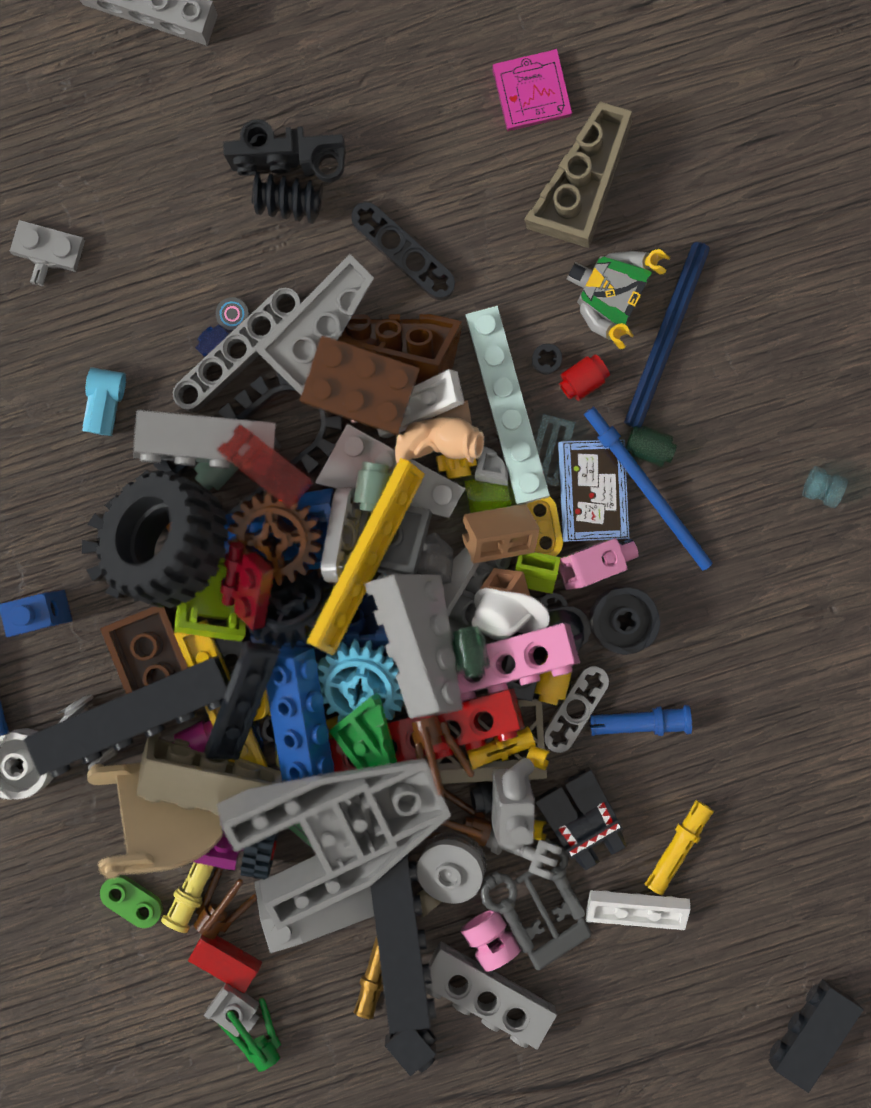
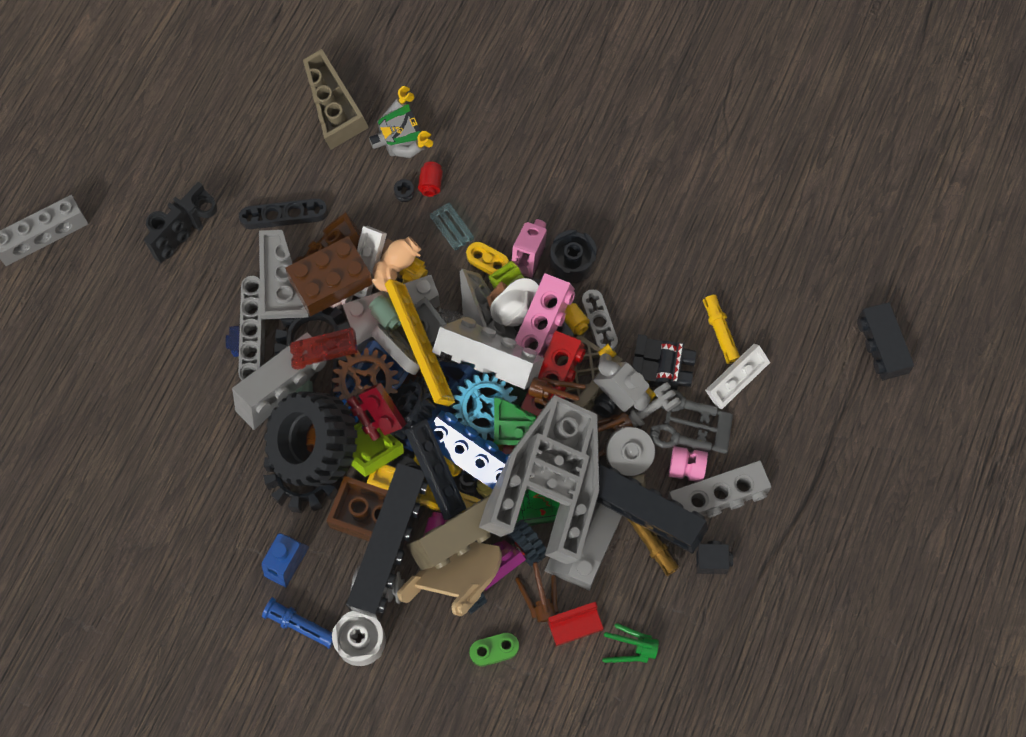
camera: 55 degrees left, 20 degrees down
(46, 249) = (104, 387): light grey plate -> none
(104, 392) = (207, 421): medium azure piece -> none
(187, 898) = (519, 611): light yellow pin -> none
(229, 999) = (600, 648): light grey brick -> none
(231, 313) = (229, 319): dark grey tile -> none
(286, 198) = (200, 244): black piece -> none
(470, 652) = (521, 332): clear green brick -> none
(486, 496) = (446, 272): clear neon green piece -> none
(491, 468) = (434, 257): light grey tile -> none
(500, 533) = (471, 276): medium nougat hinge -> none
(501, 750) = (591, 356): yellow pin -> none
(507, 405) = (410, 225): light aqua plate -> none
(532, 90) = (266, 92): dark pink tile -> none
(592, 492) = (490, 219): tile -> none
(609, 438) = (472, 189): blue bar -> none
(651, 445) = (495, 175): clear green brick -> none
(658, 720) = (642, 286): blue pin -> none
(667, 334) = (447, 127): dark blue axle -> none
(824, 487) = (592, 113): clear light blue wheel -> none

